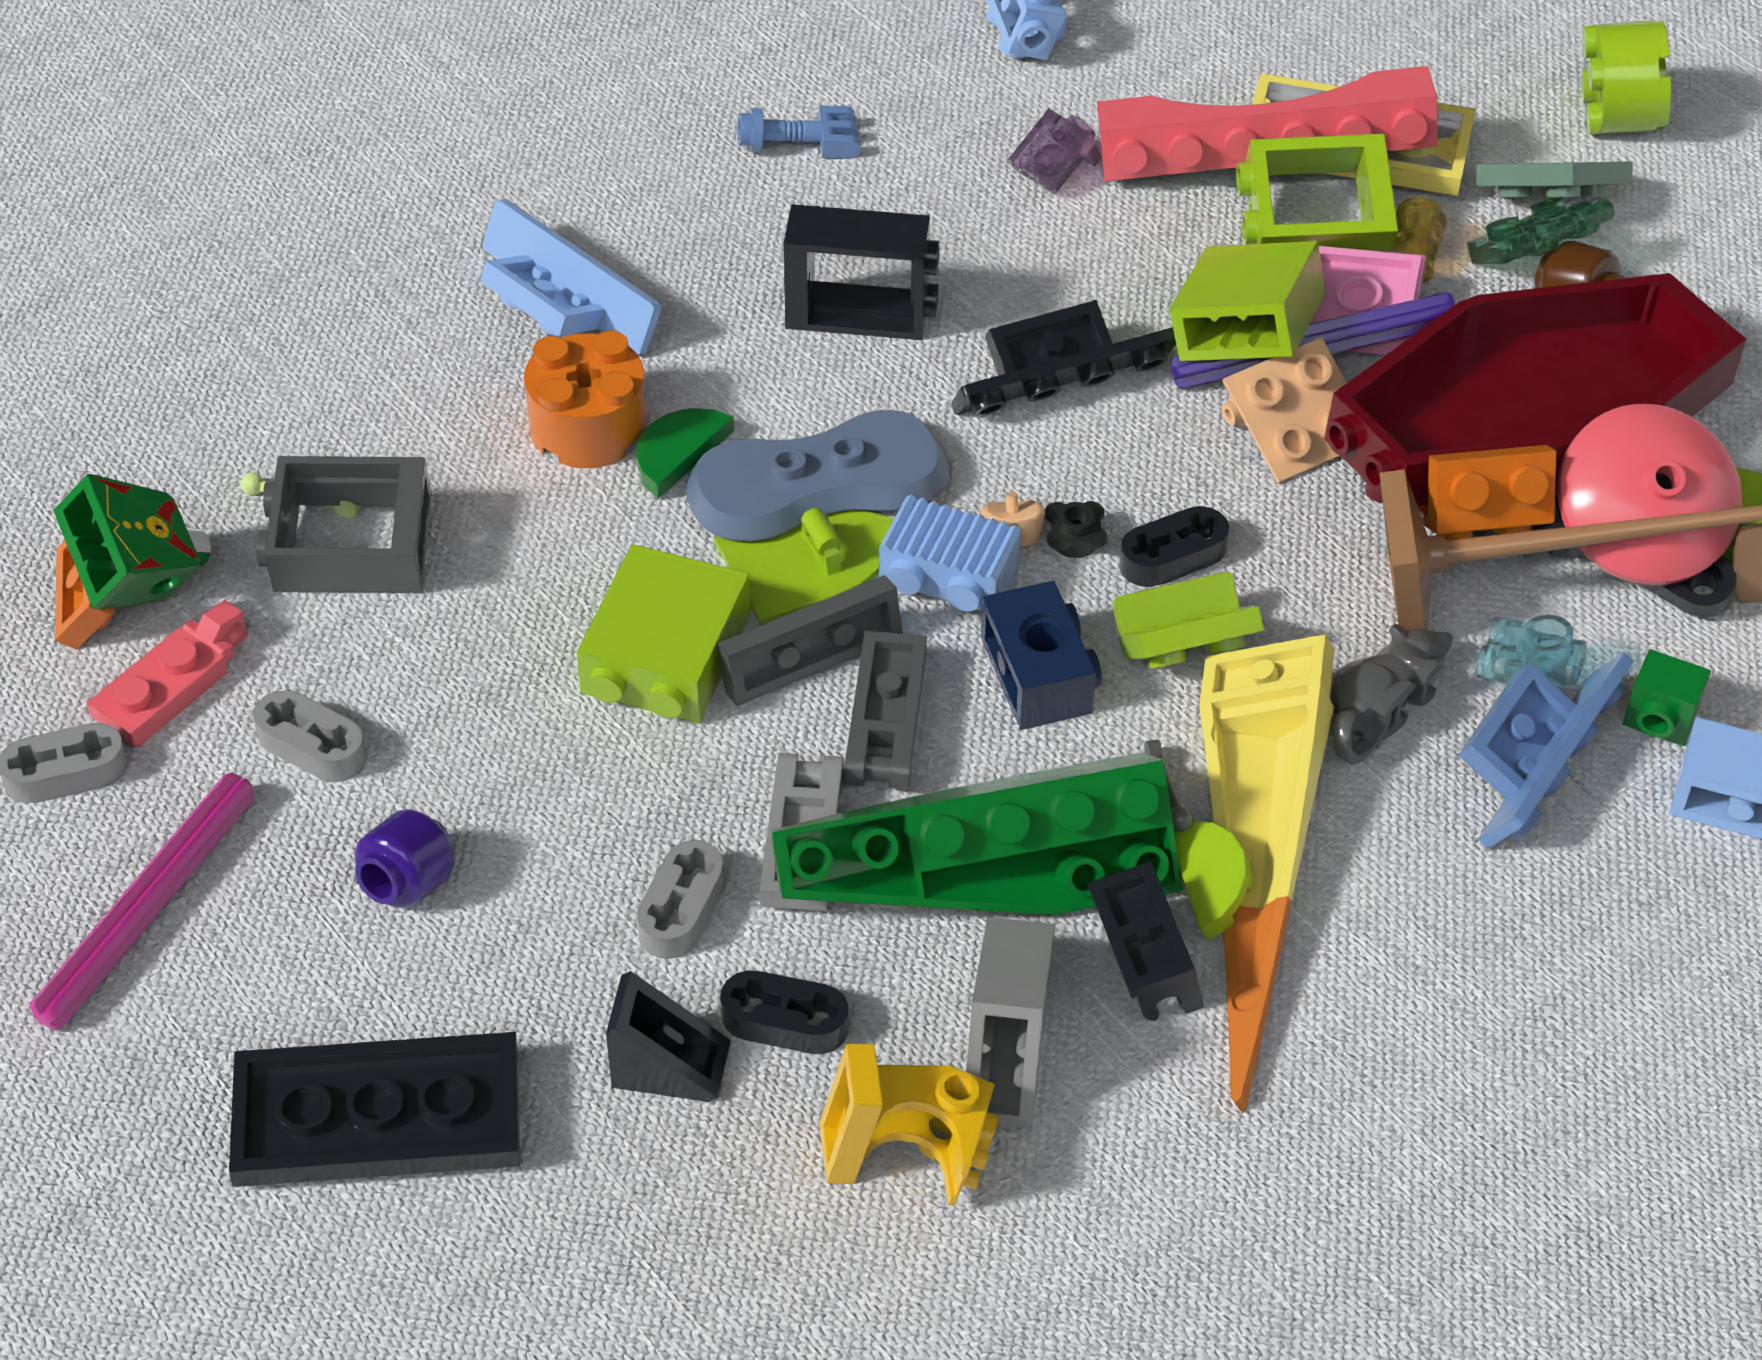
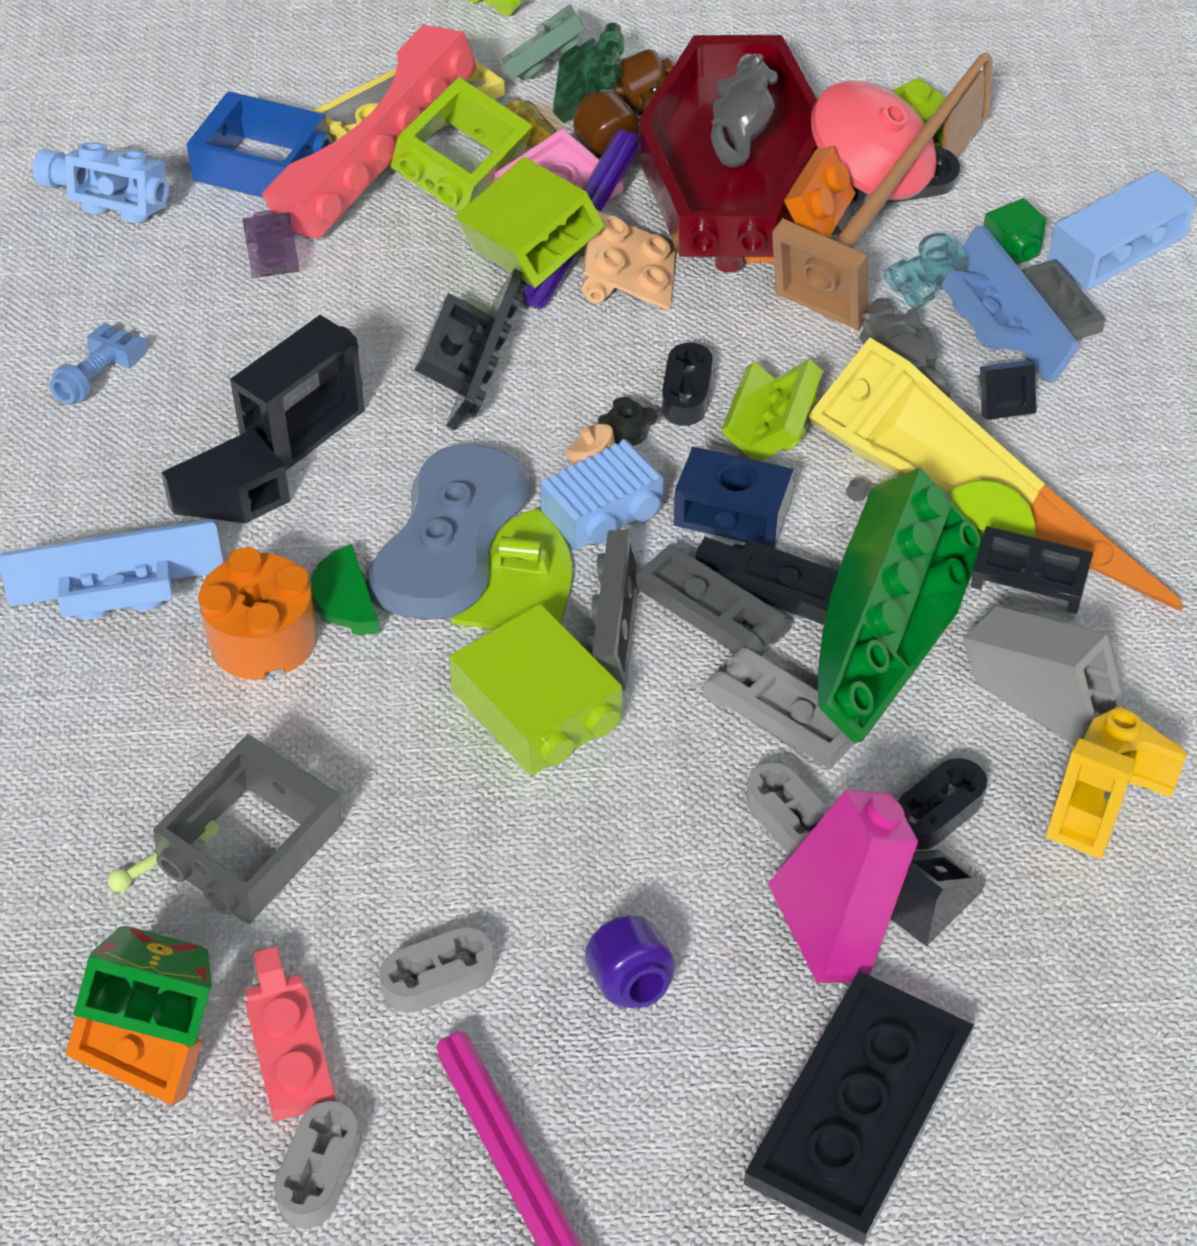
camera: 55 degrees left, 0 degrees up
(579, 963) = (846, 883): none -> dark pink slope
(731, 294) = (228, 481): none -> black slope
(958, 729) = (772, 576): none -> black hinge
(1191, 33) = (240, 117): none -> blue window
(1407, 803) = (1007, 389): none -> black tile
(1478, 272) = (600, 118): none -> reddish brown head
(1563, 363) = (743, 110): none -> dark grey animal
(1602, 788) = (1065, 299): none -> dark grey plate

